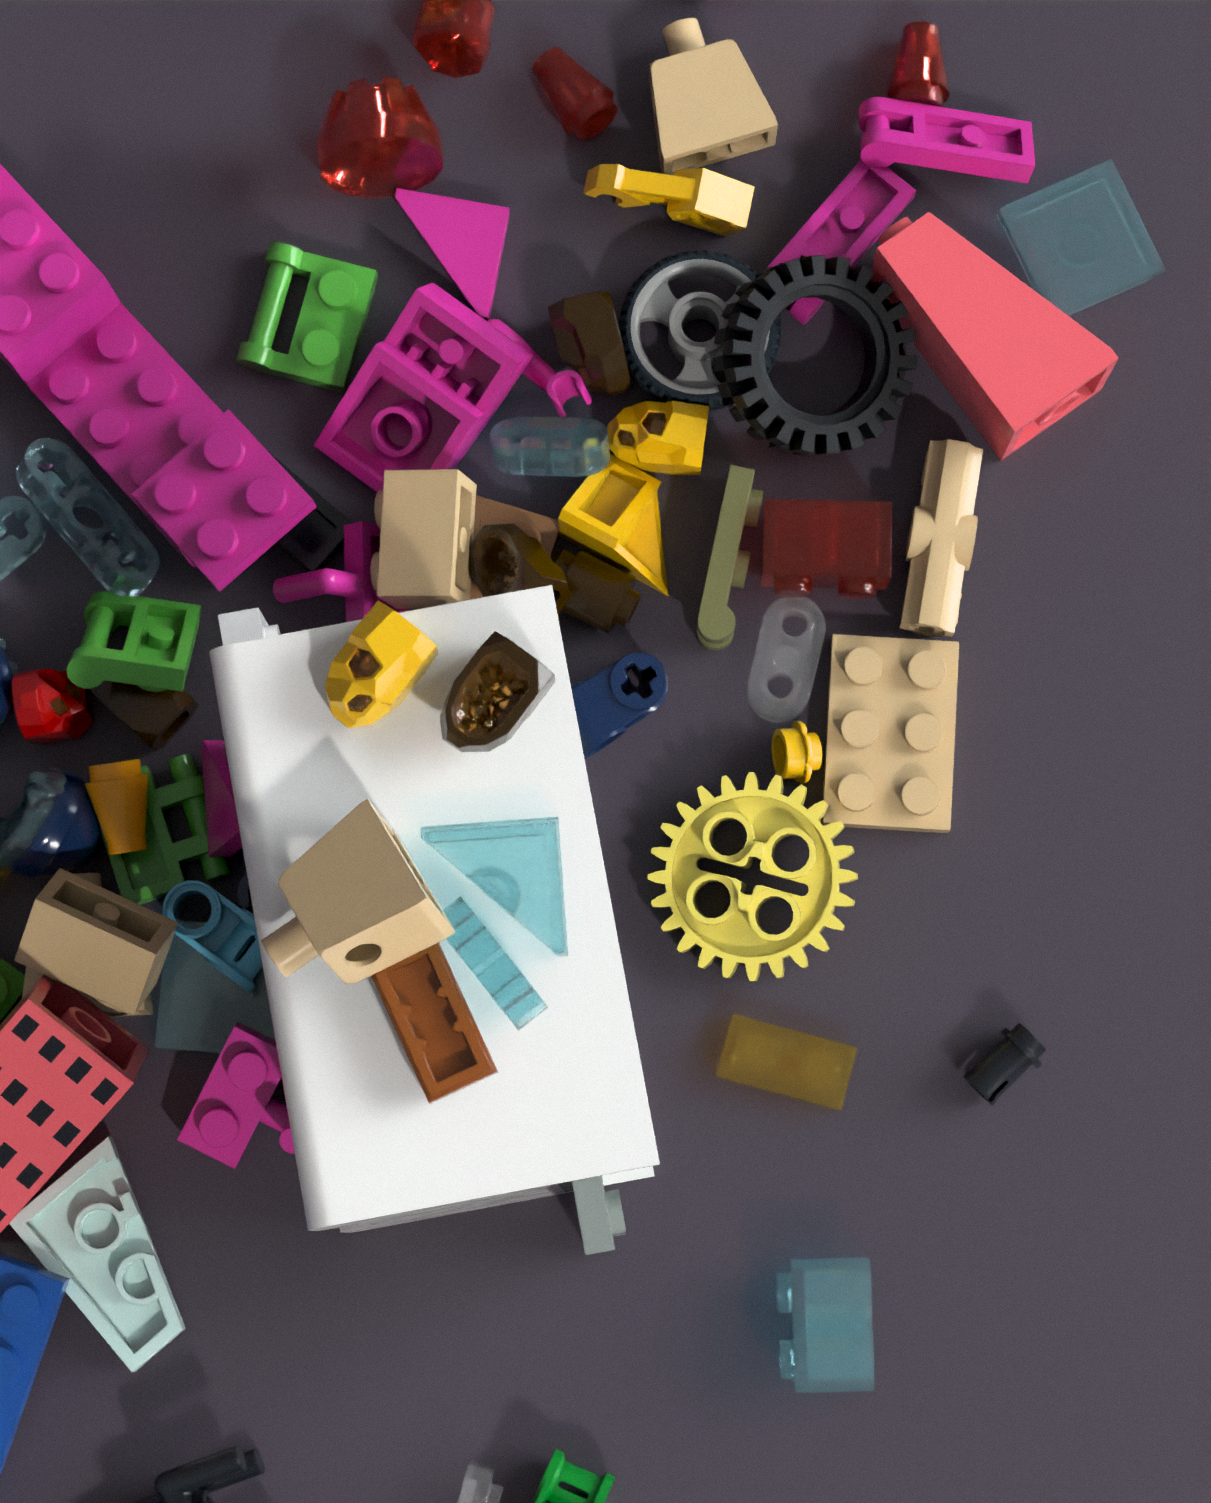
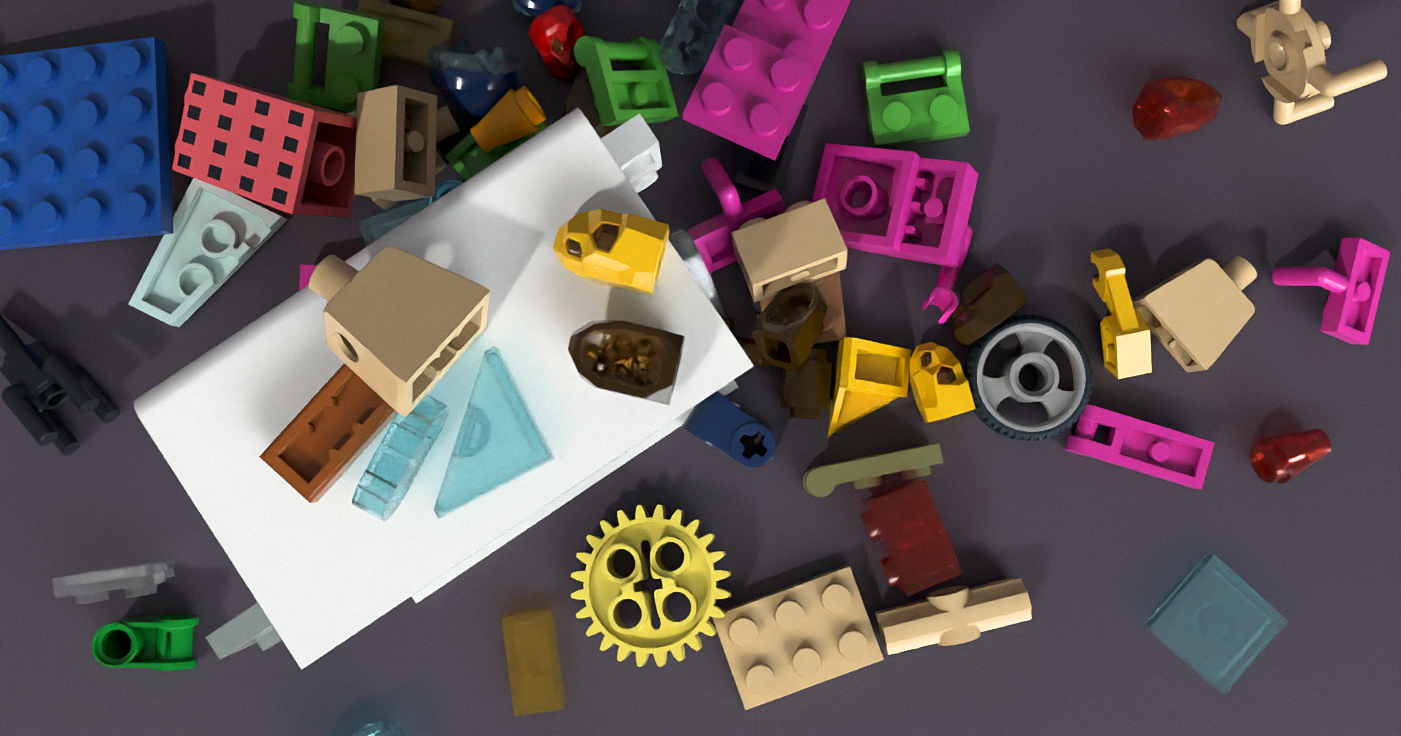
camera: 65 degrees right, 5 degrees up
(378, 140) = (1064, 89): clear red piece -> none
(463, 239) = (1019, 183): dark pink tile -> none
(550, 446) = (896, 308): clear light blue beam -> none
(575, 95) = (1161, 214): clear red cone -> none
(786, 657) = (819, 540): clear plate -> none
(796, 752) = (753, 576): yellow plate -> none
(883, 348) = (1061, 521): black tyre -> none
(945, 139) = (1249, 495): dark pink plate -> none
(987, 334) = (1121, 586): coral slope -> none

